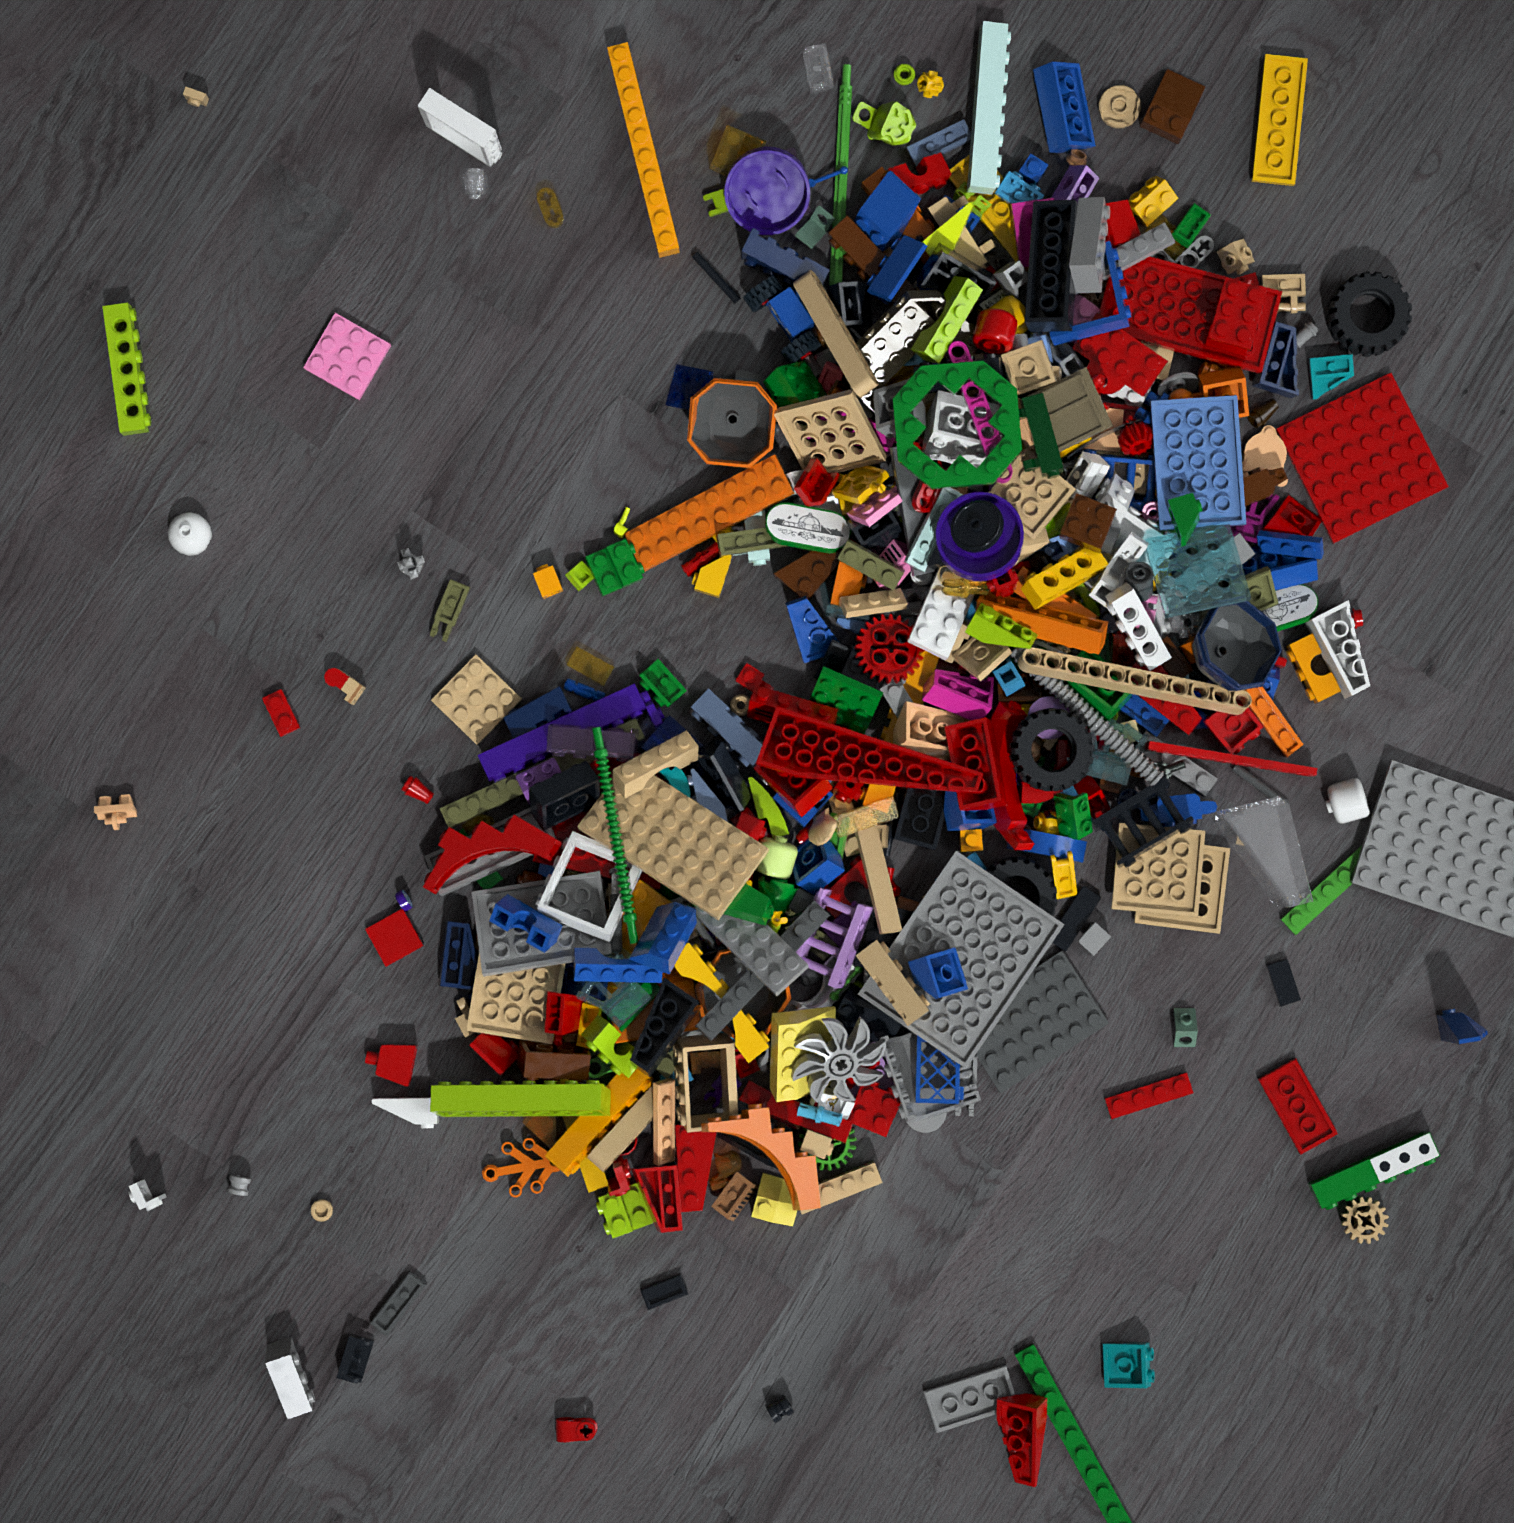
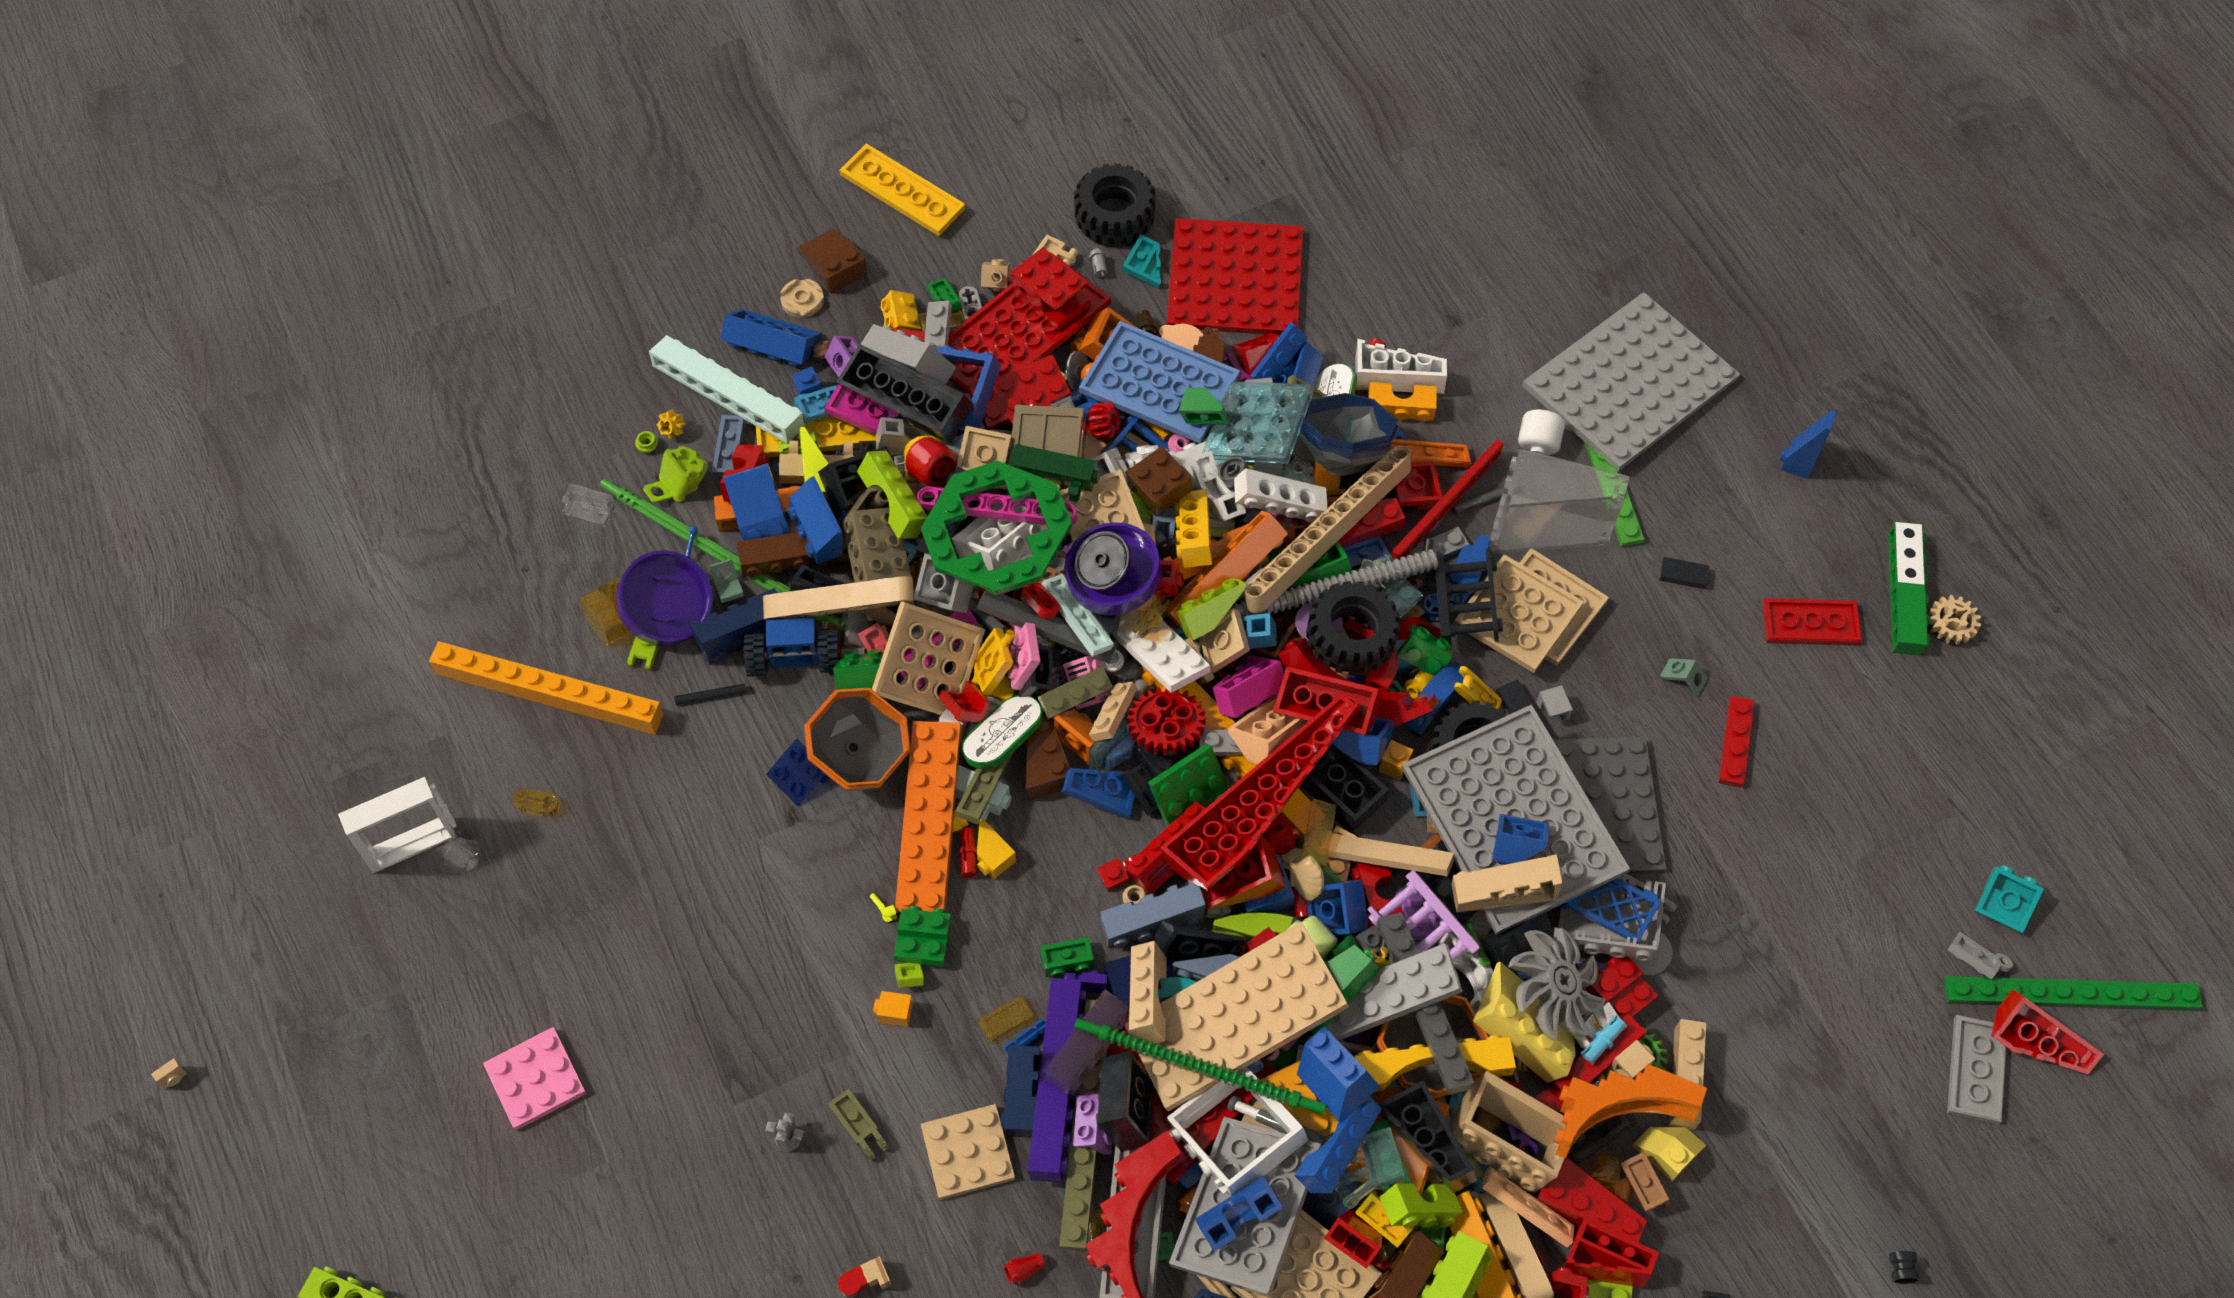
camera: 60 degrees left, 25 degrees down
(1064, 1362) = (1979, 957): none -> light grey hinge
(1279, 368) = (1124, 292): dark blue wedge -> none

